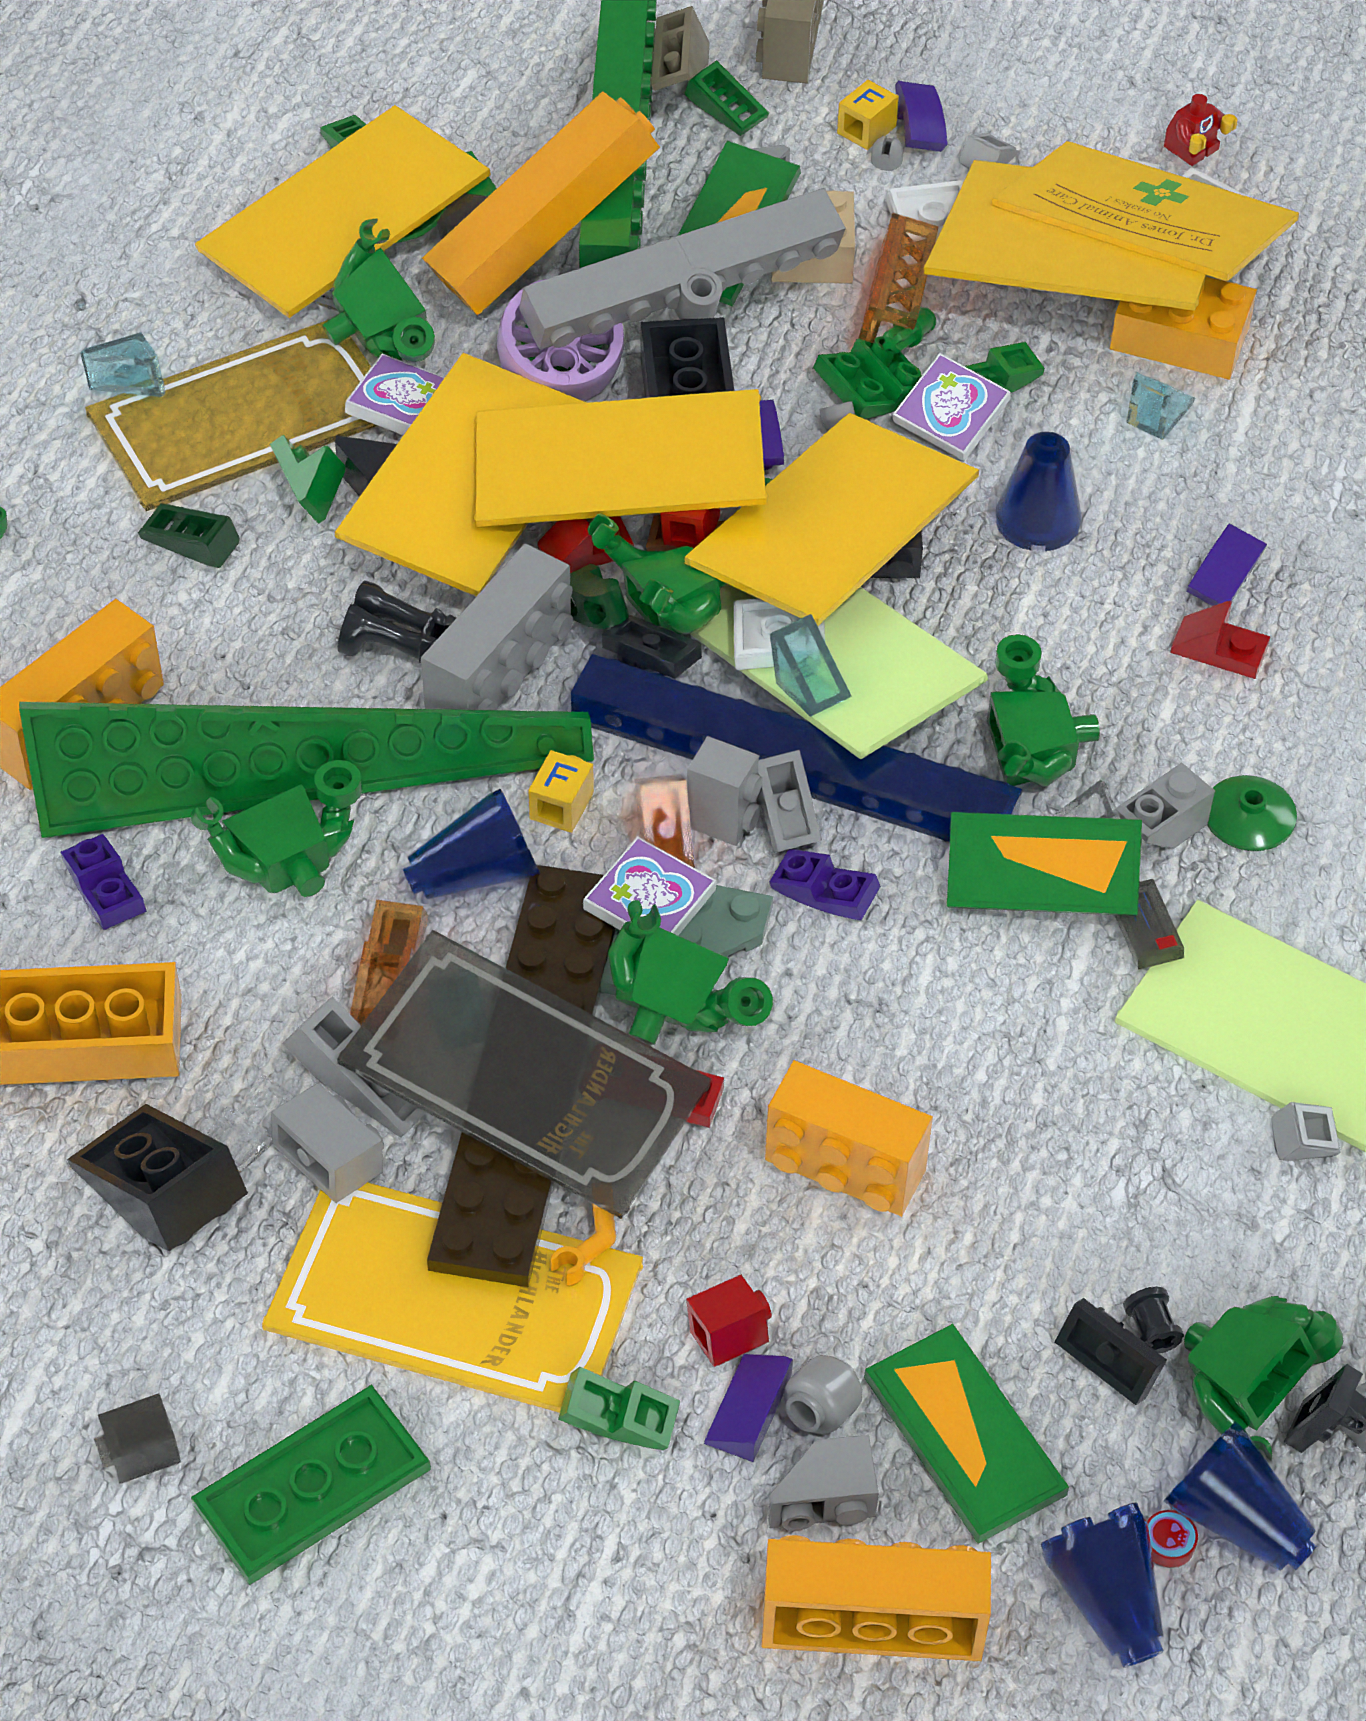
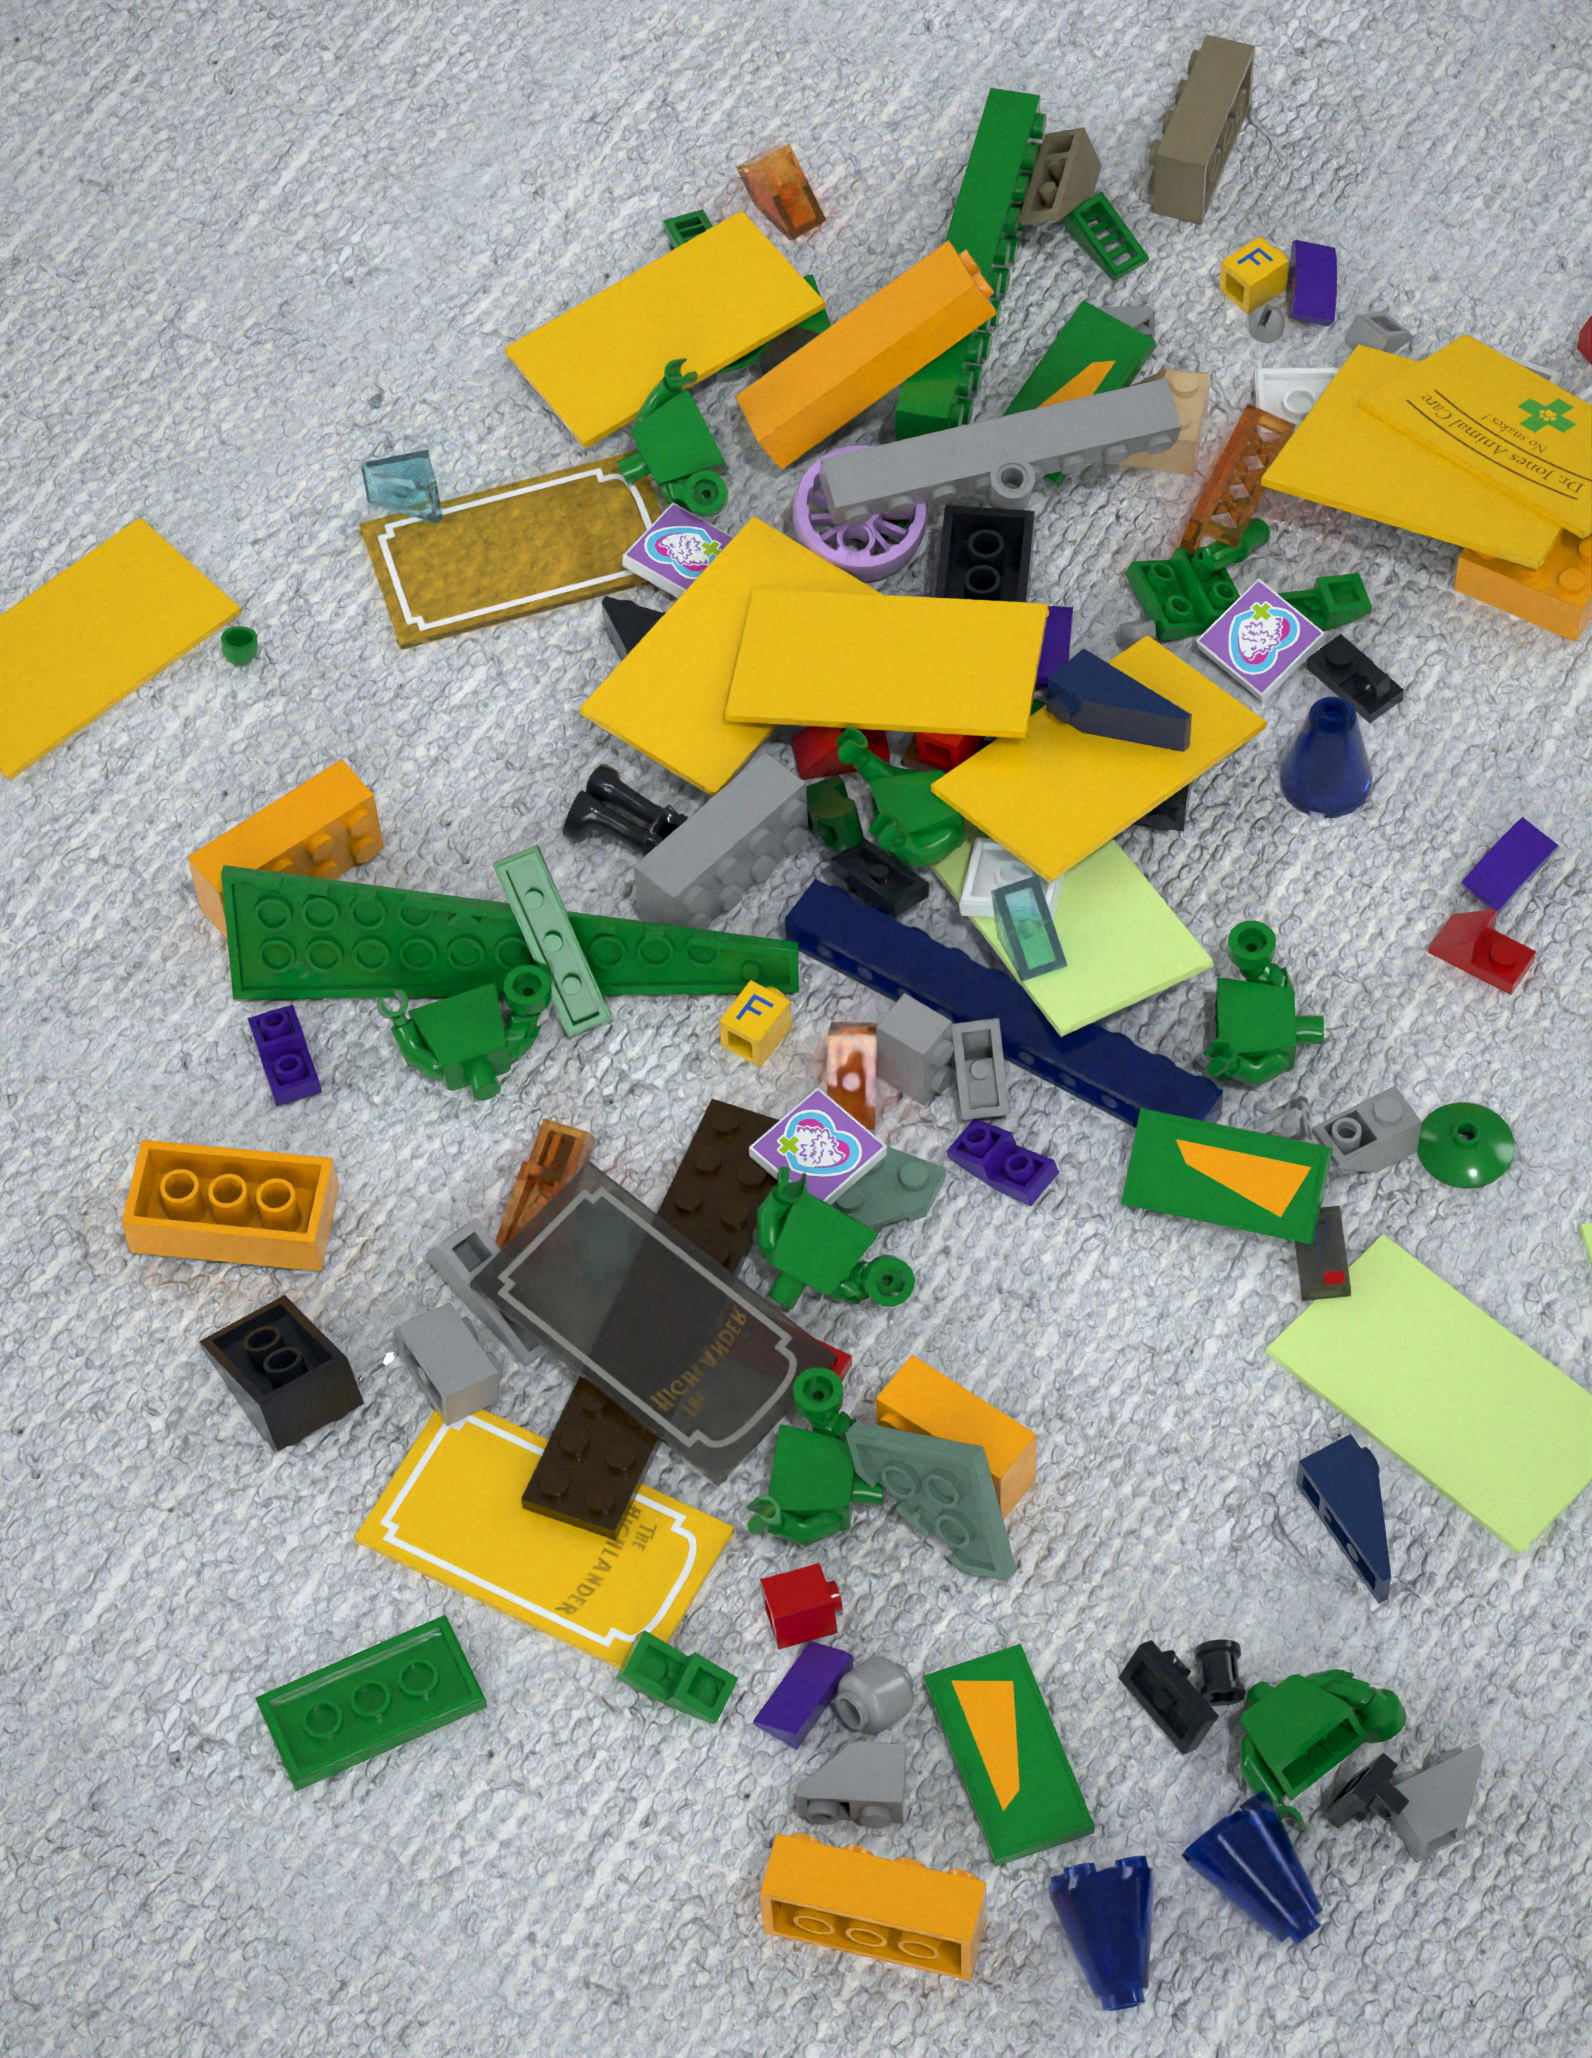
camera: 15 degrees right, 5 degrees up
(137, 1439) = (214, 1633): clear smoke brick -> none
(211, 548) = (458, 701): dark green slope -> none
(312, 476) = (570, 636): green slope -> none
(354, 734) = (552, 939): none -> tile
(425, 90) = (781, 190): none -> clear orange slope
(472, 852) = (652, 1078): clear blue cone -> none
(589, 1249) = (680, 1512): light orange arm -> none
(715, 1187) = (813, 1471): none -> green torso
(842, 468) = (1114, 705): none -> dark blue slope
(848, 1186) = (940, 1490): none -> sand green plate
(1028, 417) = (1355, 678): none -> black hinge
(1156, 406) = (1485, 664): clear light blue slope -> none
(1172, 1538) = (1182, 1893): tile -> none
(1234, 1142) = (1346, 1495): none -> dark blue slope
(1305, 1132) = (1427, 1500): light grey slope -> none

